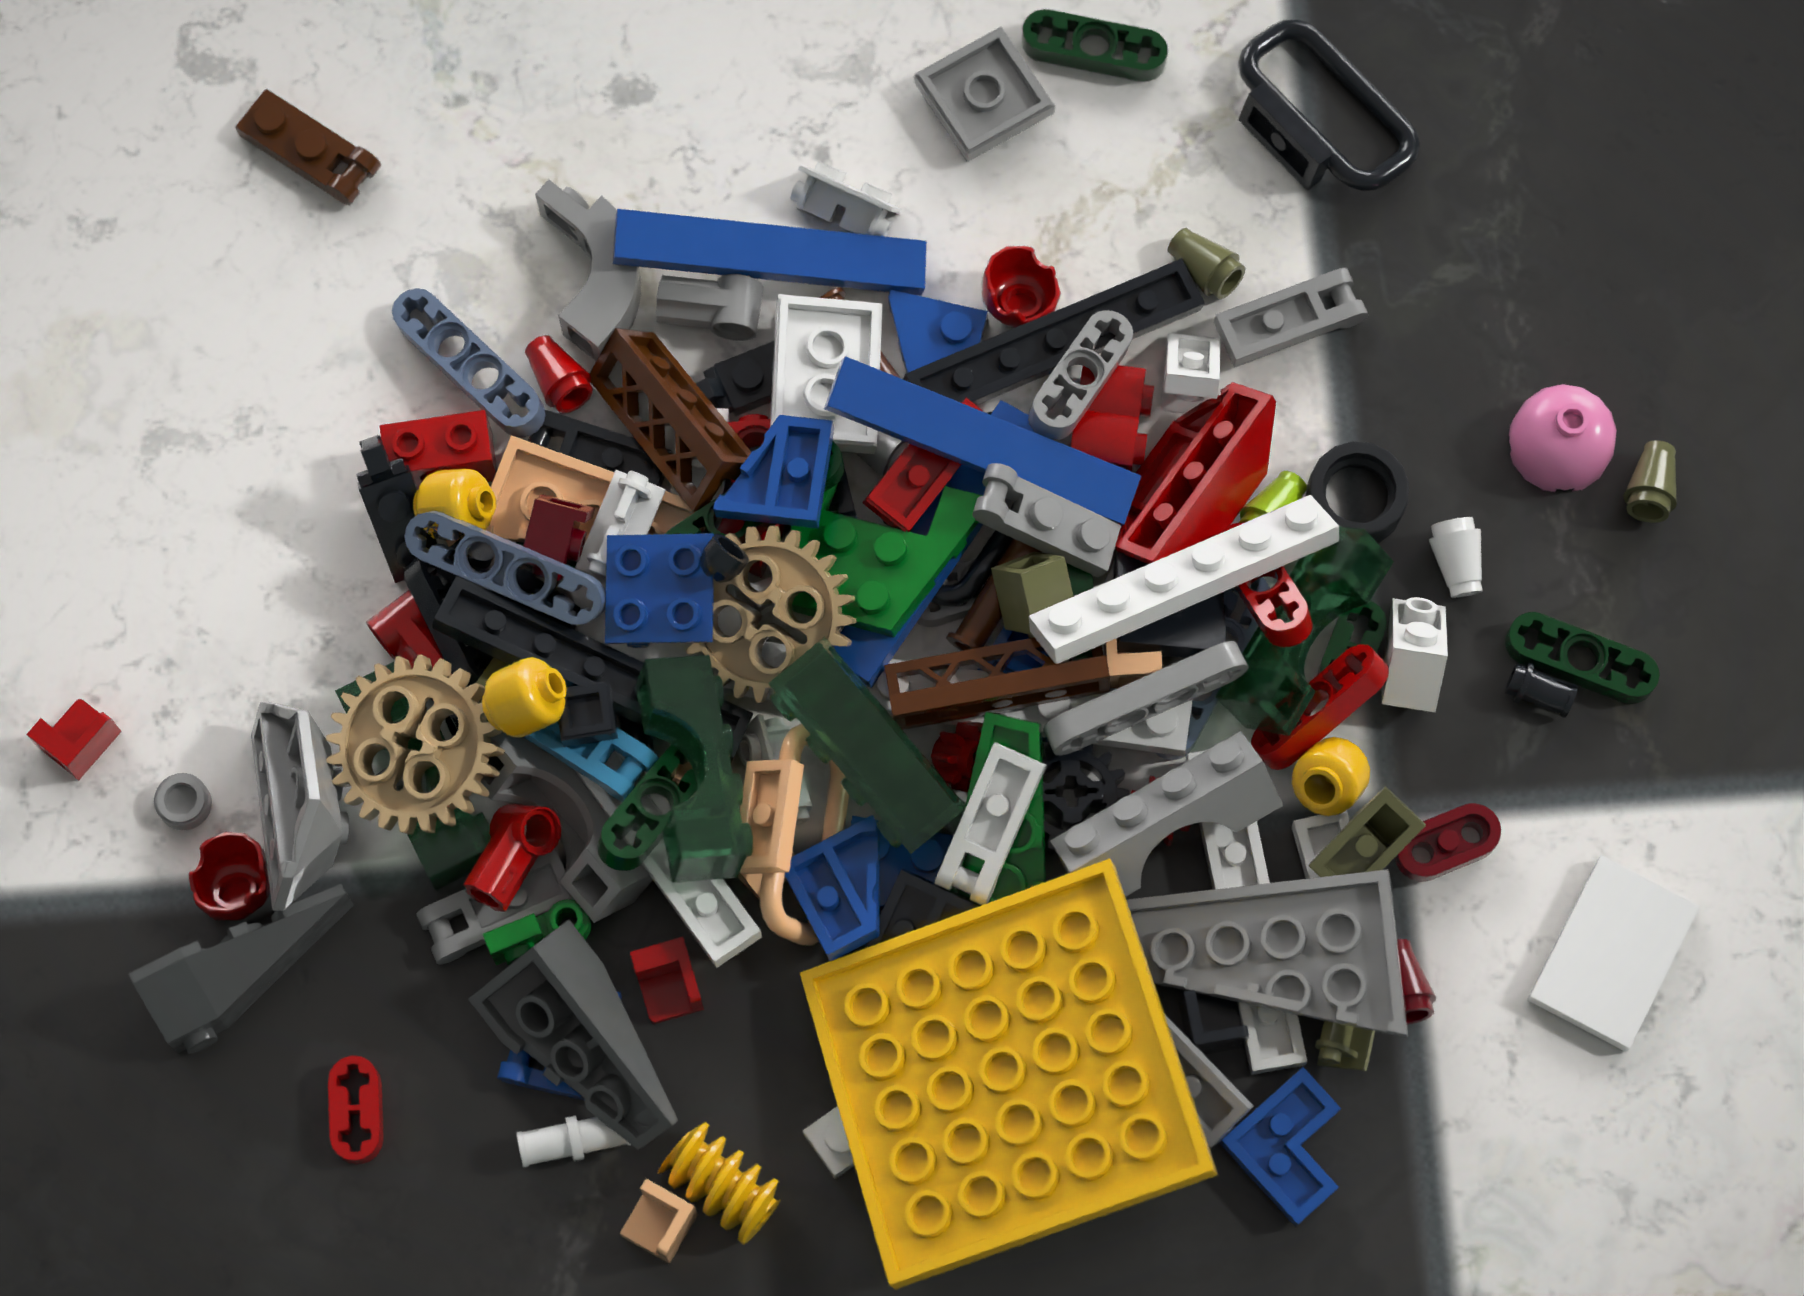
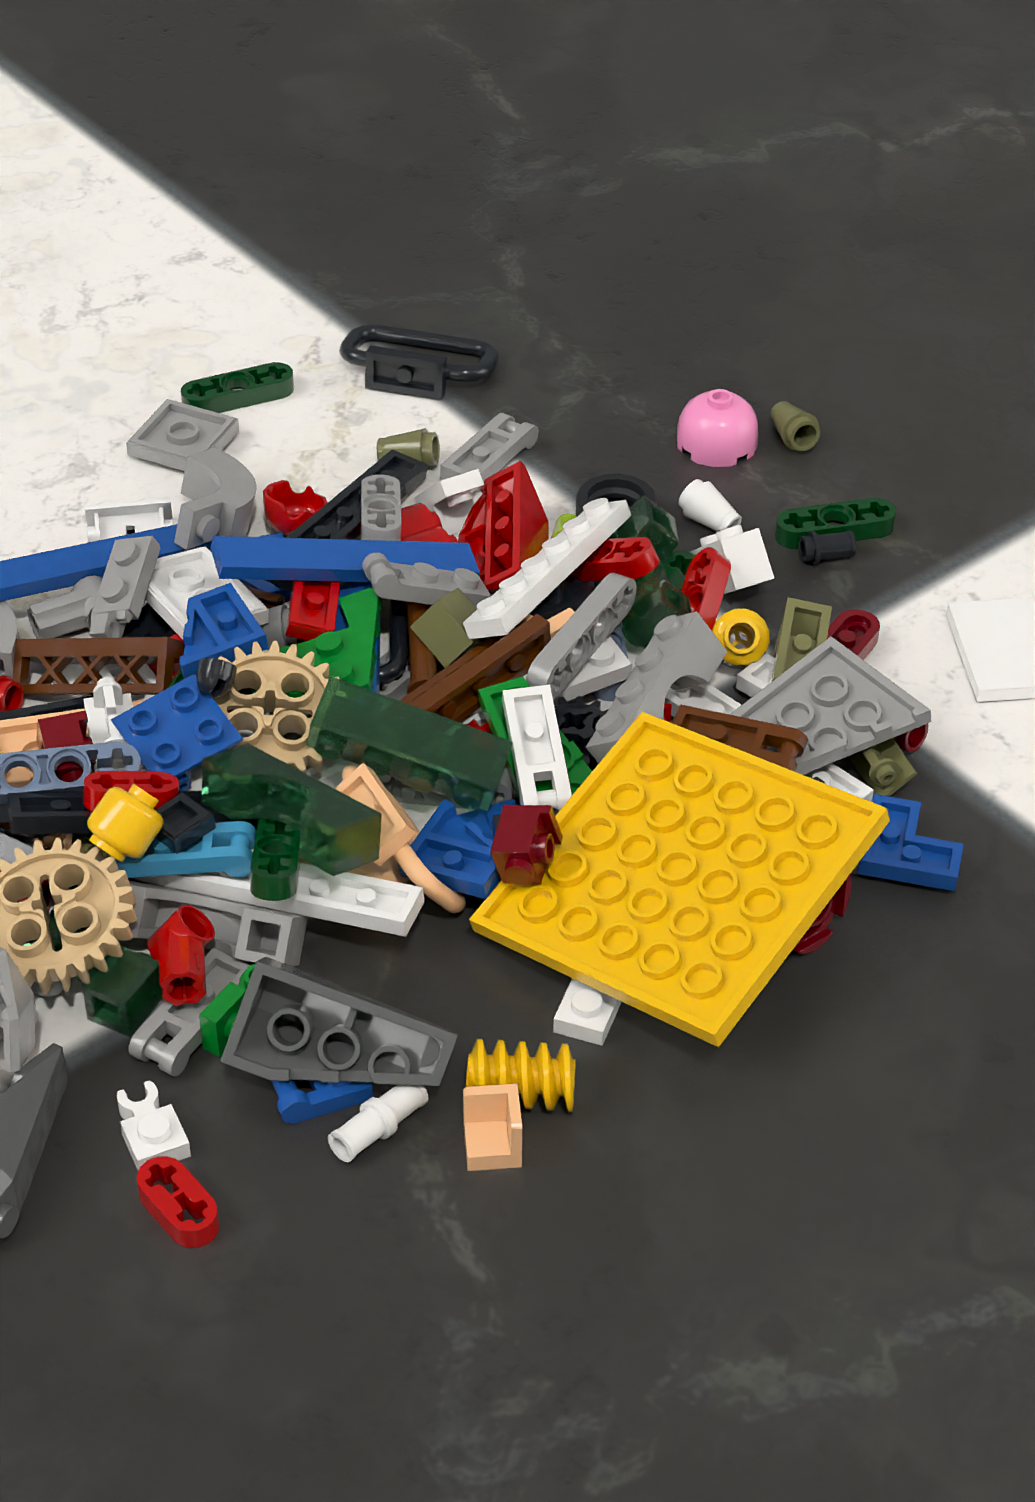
camera: 35 degrees left, 30 degrees down
(383, 1020) = (151, 1129): none -> white plate
(566, 645) = (157, 784): none -> red beam
(667, 980) = (372, 973): red panel -> none
(750, 329) = (123, 585): none -> light grey hinge
(884, 944) = (525, 843): none -> dark red brick
(967, 215) = (220, 496): none -> light grey arch
(1191, 934) = (745, 734): none -> reddish brown plate

